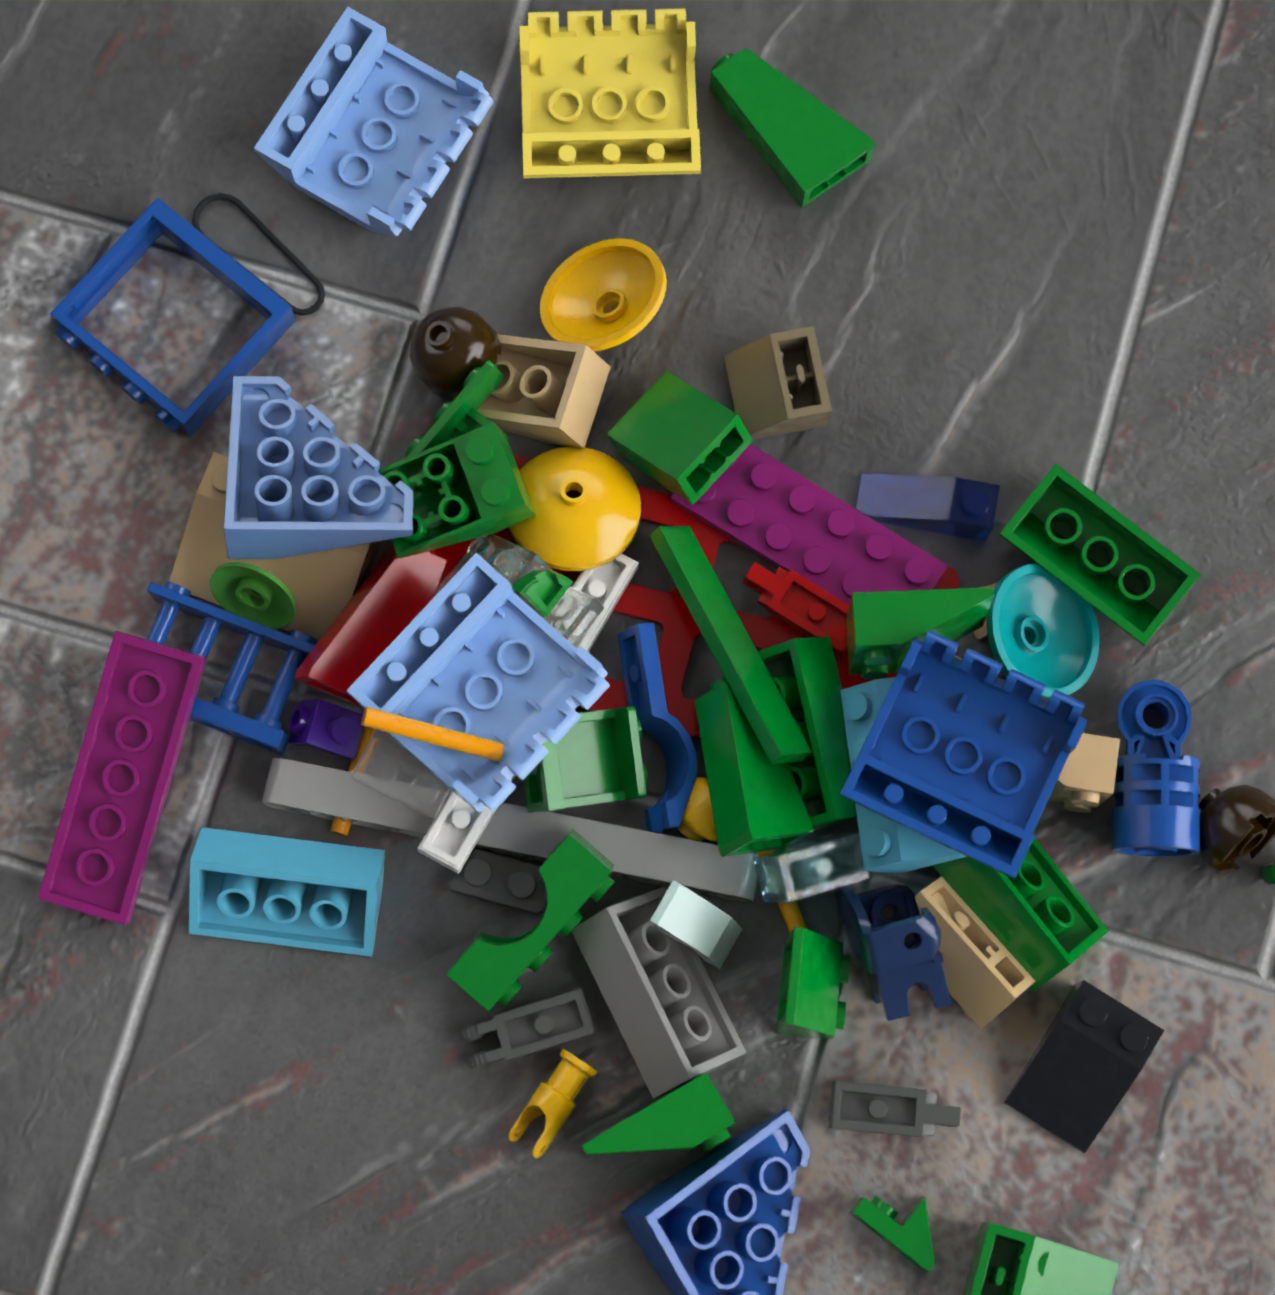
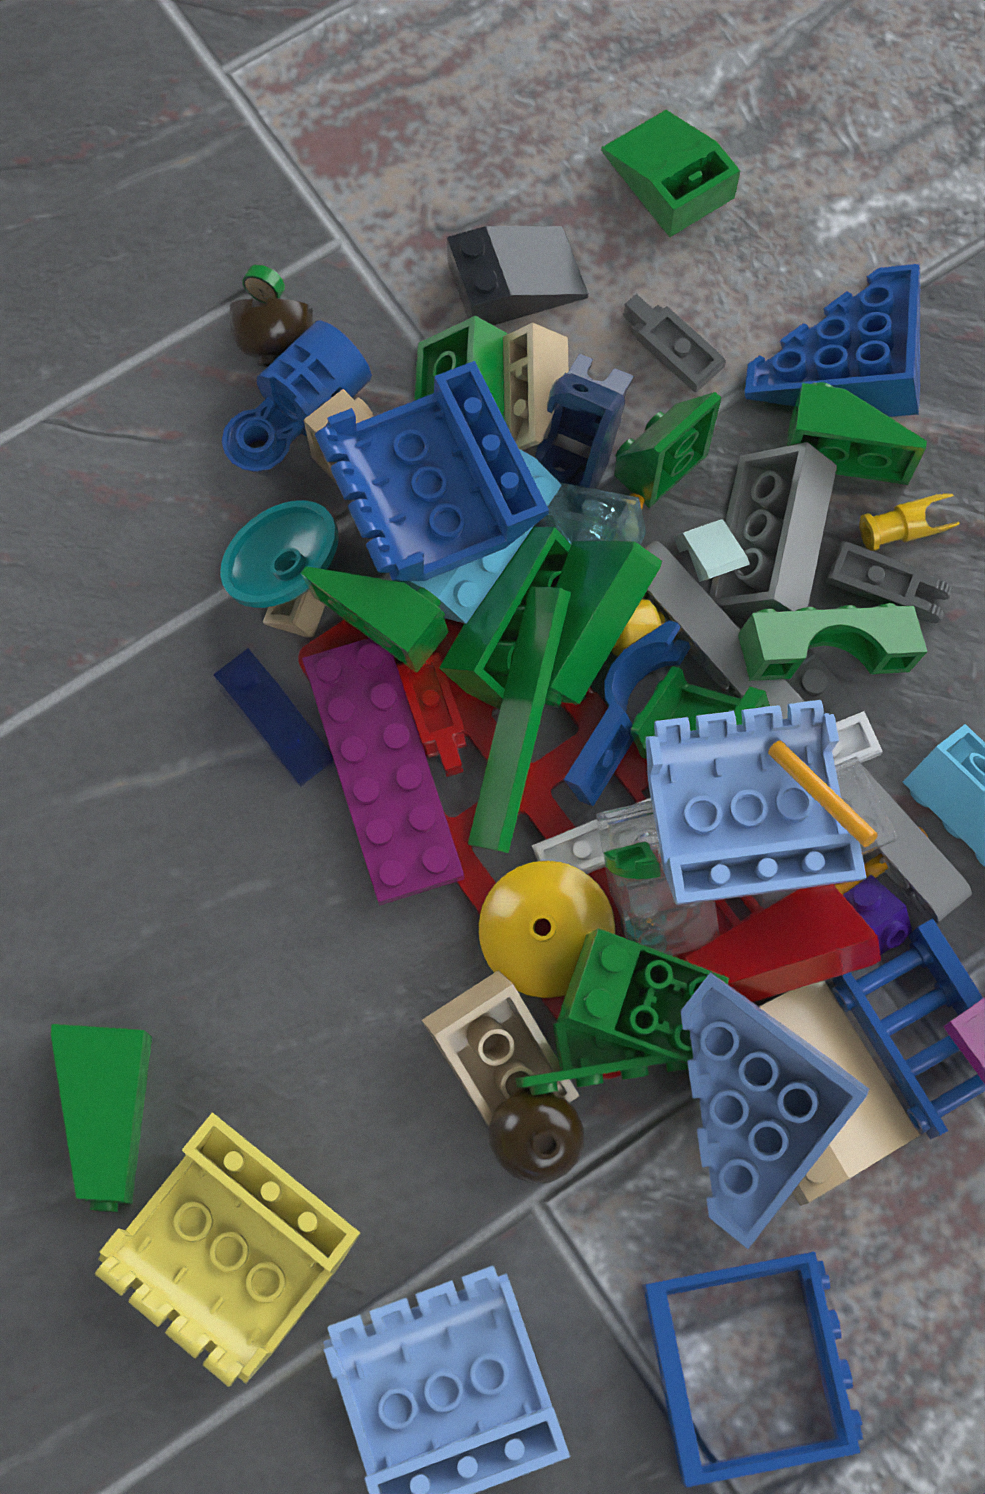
camera: 135 degrees left, 5 degrees down
(221, 196) = (605, 1374): black piece -> none
(253, 594) = (860, 1056): bright green dish -> none
(603, 294) = (383, 1105): yellow dish -> none
(680, 437) = (420, 910): green brick -> none
(779, 384) = (304, 894): dark tan slope -> none
(909, 1237) = (730, 262): green slope -> none
(1099, 554) = (190, 574): green slope -> none

